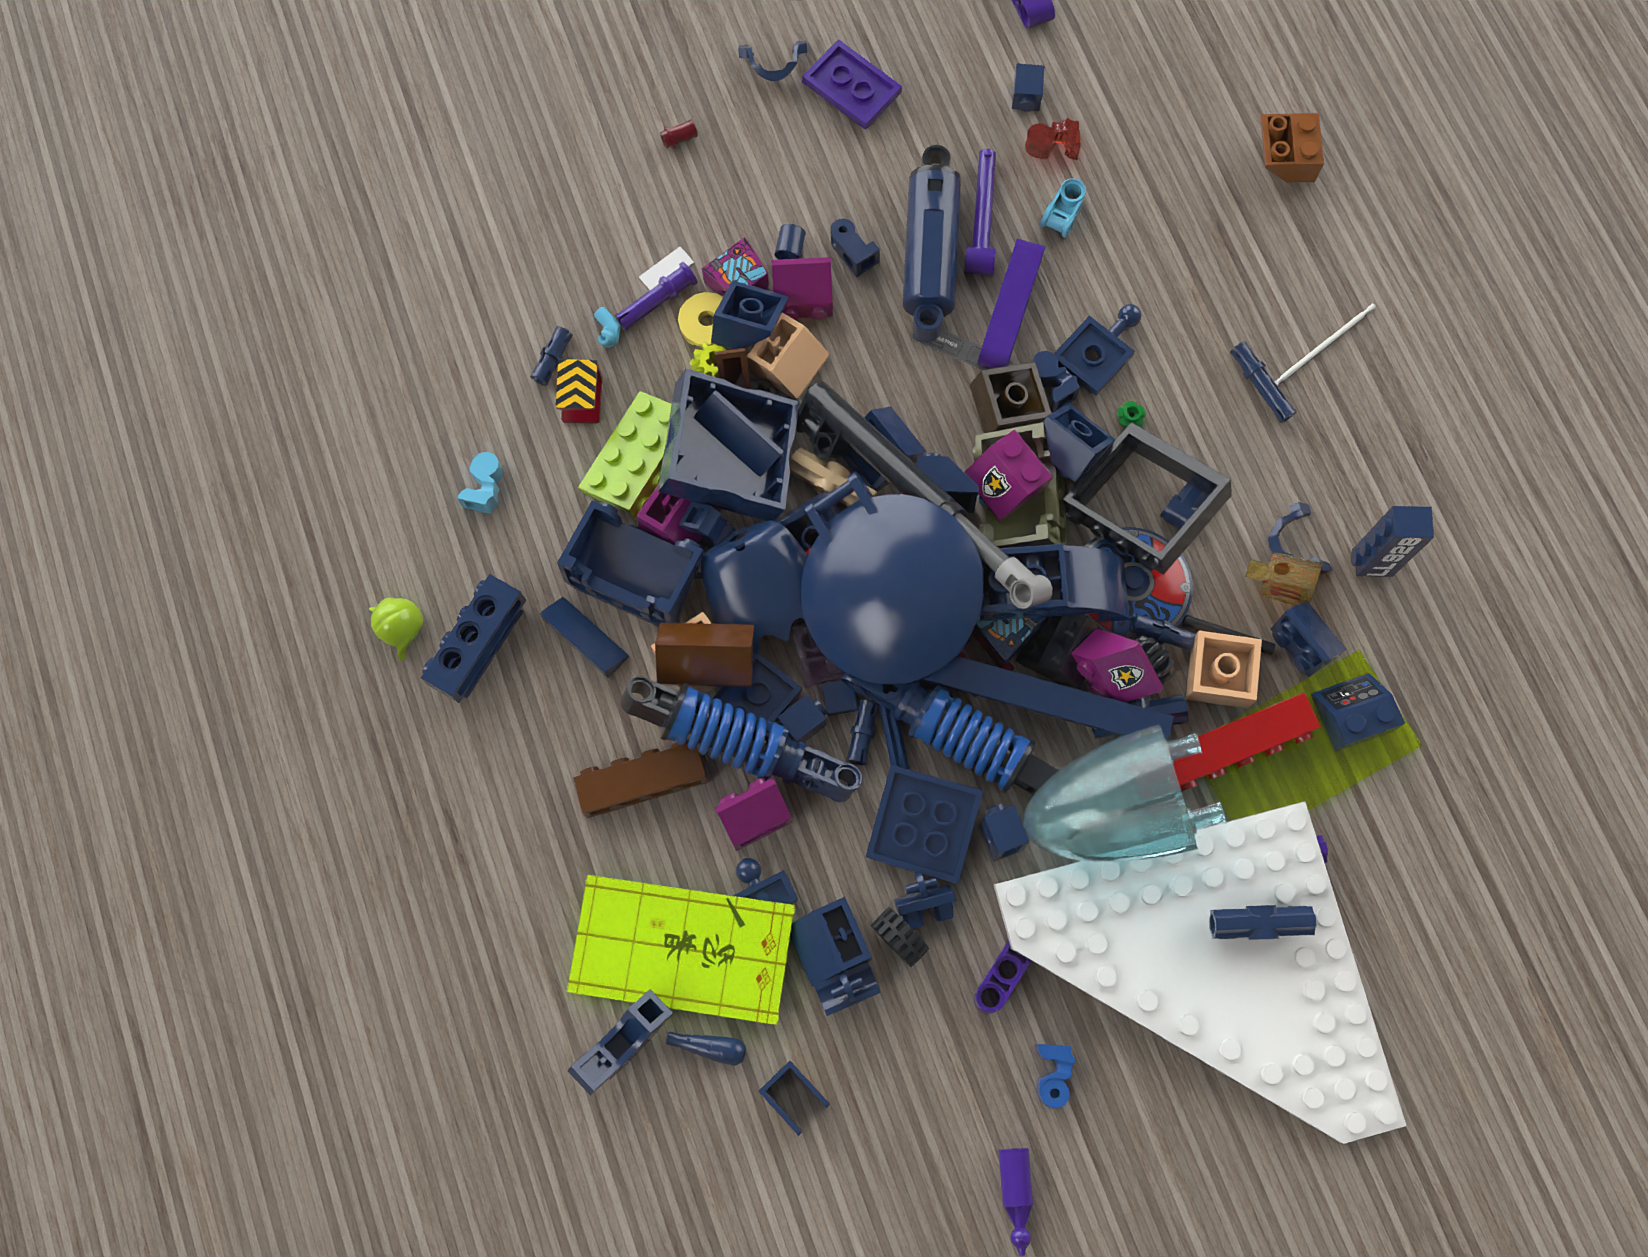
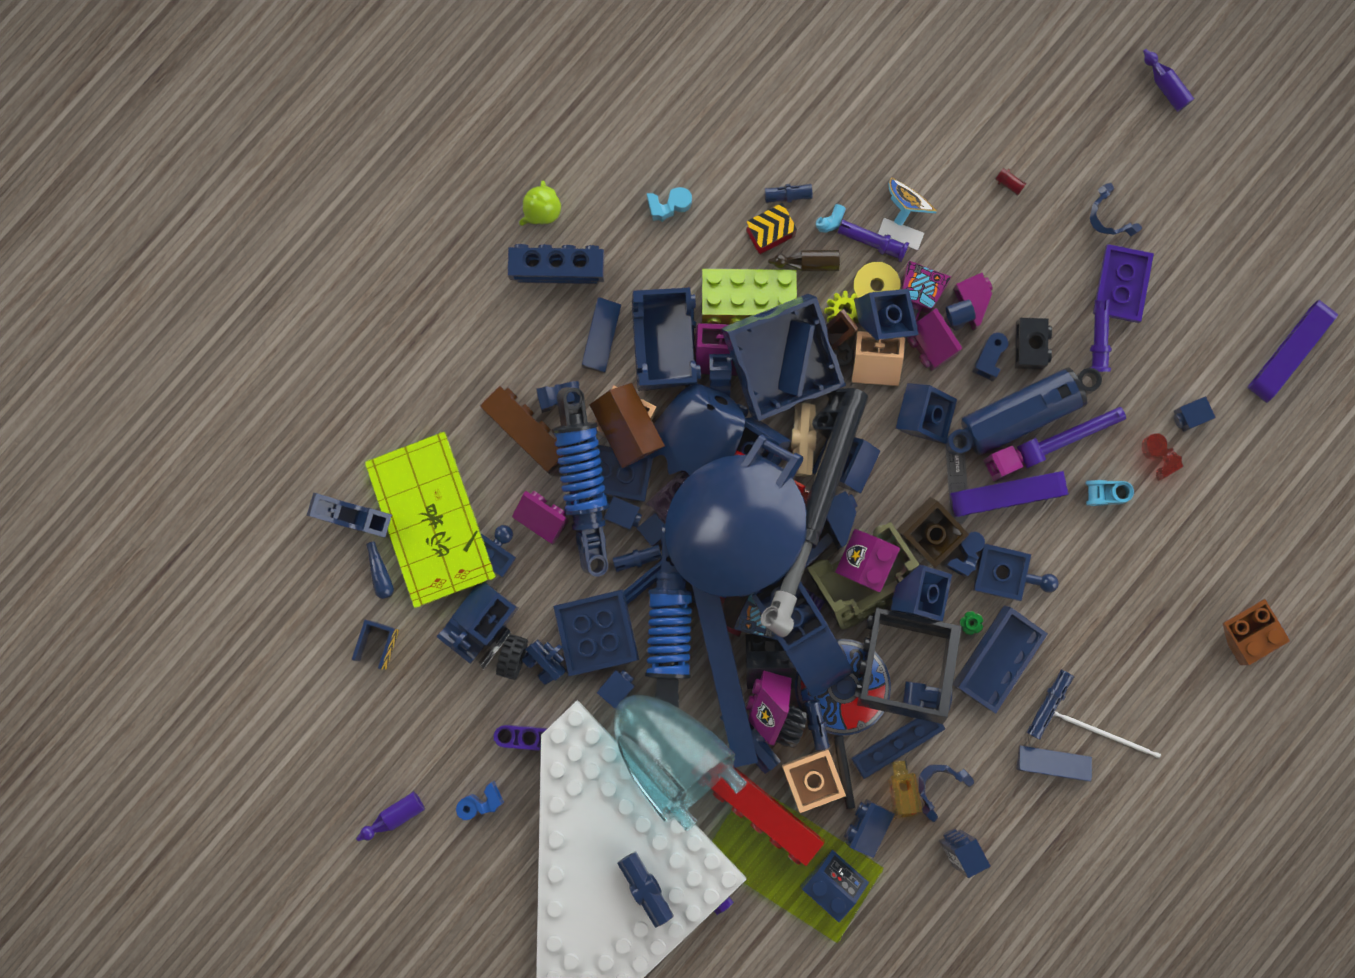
camera: 60 degrees right, 10 degrees up
(620, 729) = (548, 395): none -> dark blue leg
(639, 371) = (809, 260): none -> dark brown wheel
(641, 246) = (907, 201): none -> shield
(769, 221) = (979, 292): none -> magenta slope
(871, 212) = (1025, 355): none -> black brick
(875, 341) = (926, 413): none -> dark blue slope
(879, 952) = (494, 647): none -> black sticker
(907, 136) = (1101, 349): none -> dark purple pin
(975, 292) = (1003, 462): none -> magenta slope
(1185, 405) = (1000, 659): none -> dark blue slope
(1226, 565) = (895, 746): none -> dark blue tile
(1329, 411) = (1054, 763): none -> slope

